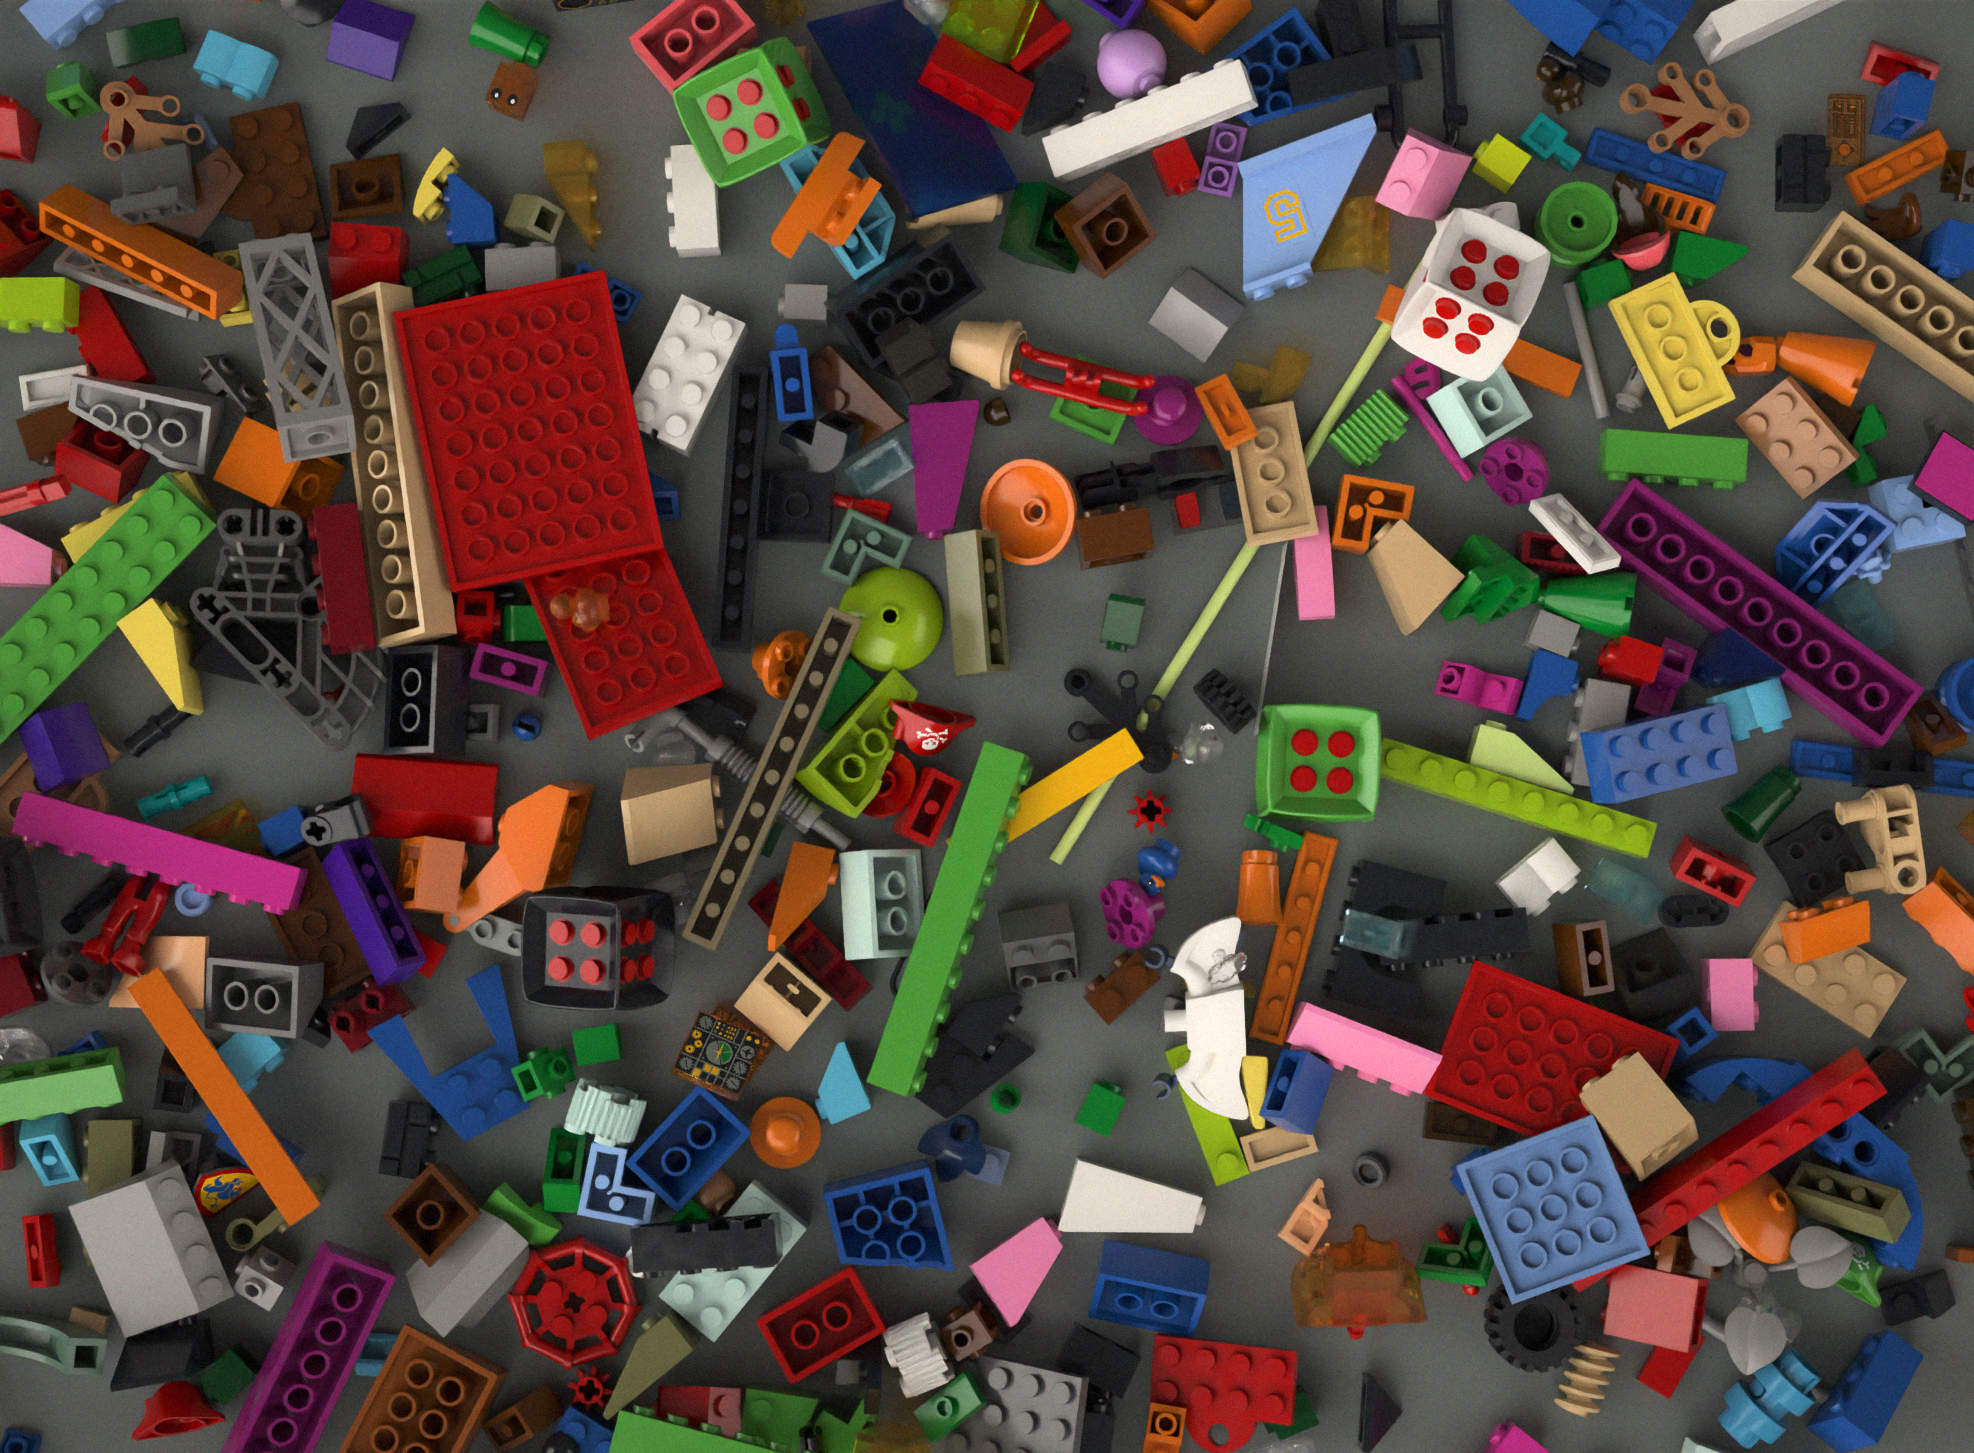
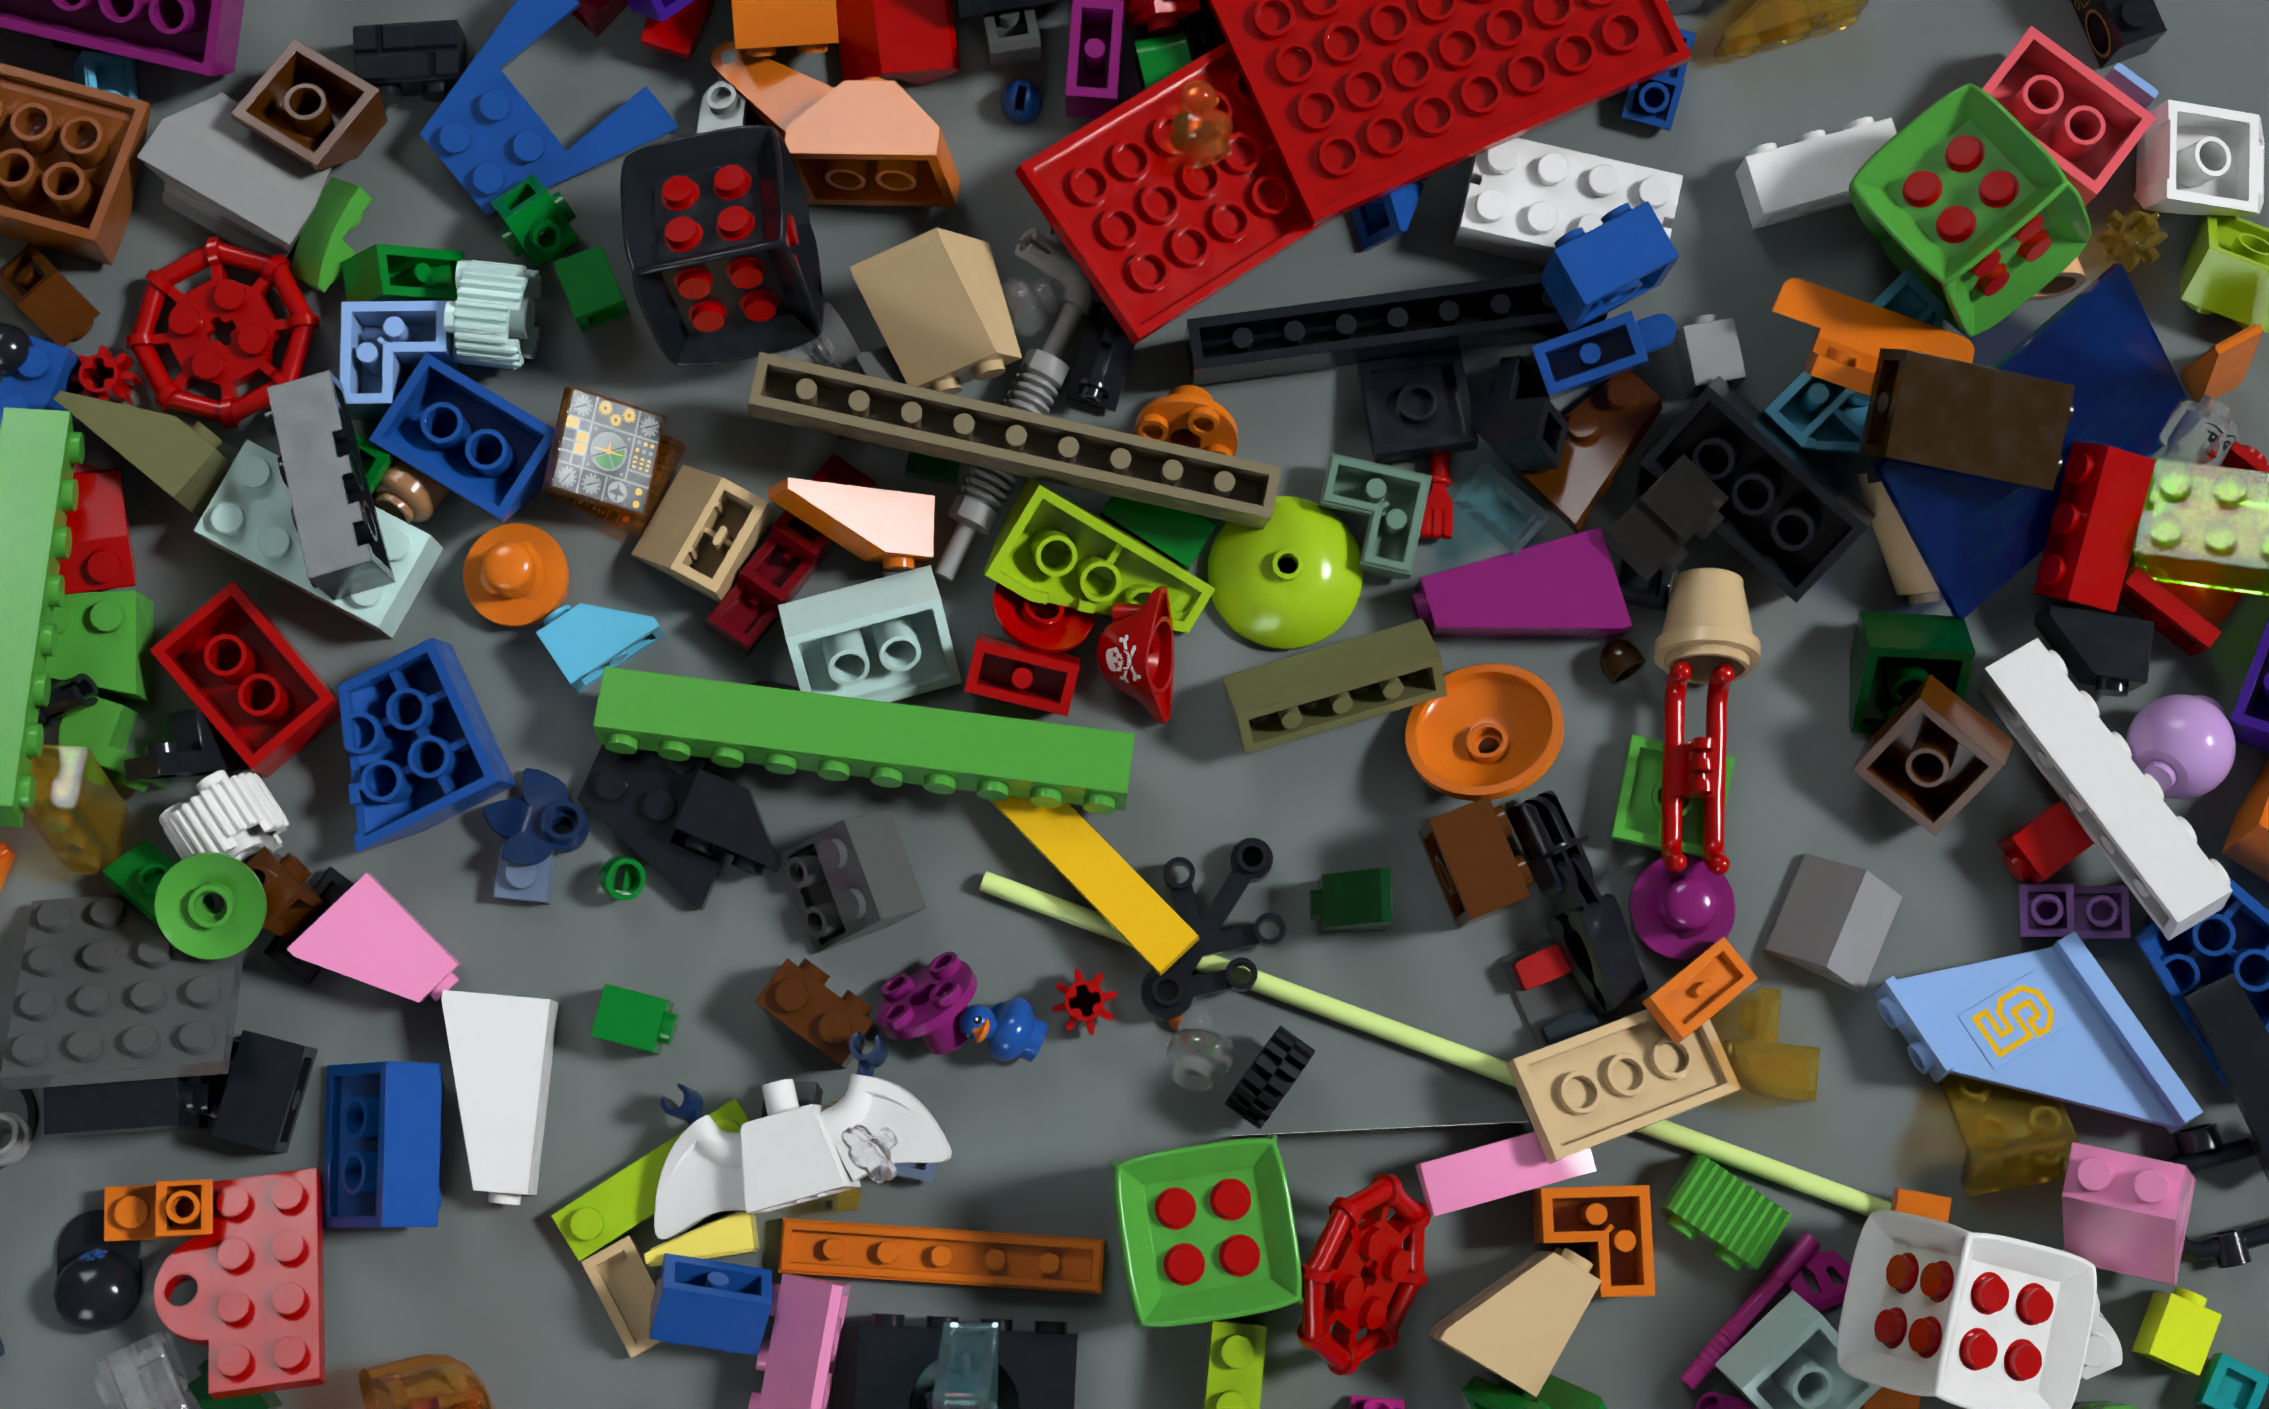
camera: 75 degrees right, 5 degrees down
(741, 358) = (1608, 264): none -> blue brick
(897, 150) = (1967, 418): none -> dark brown panel
(990, 1371) = (194, 925): none -> bright green dish
(1259, 889) = (1001, 1187): orange plant -> none
(1280, 837) = (1086, 1206): green plate -> none
(1307, 1220) = (526, 1363): light nougat slope -> none
(1364, 668) = (1364, 1274): none -> red plate

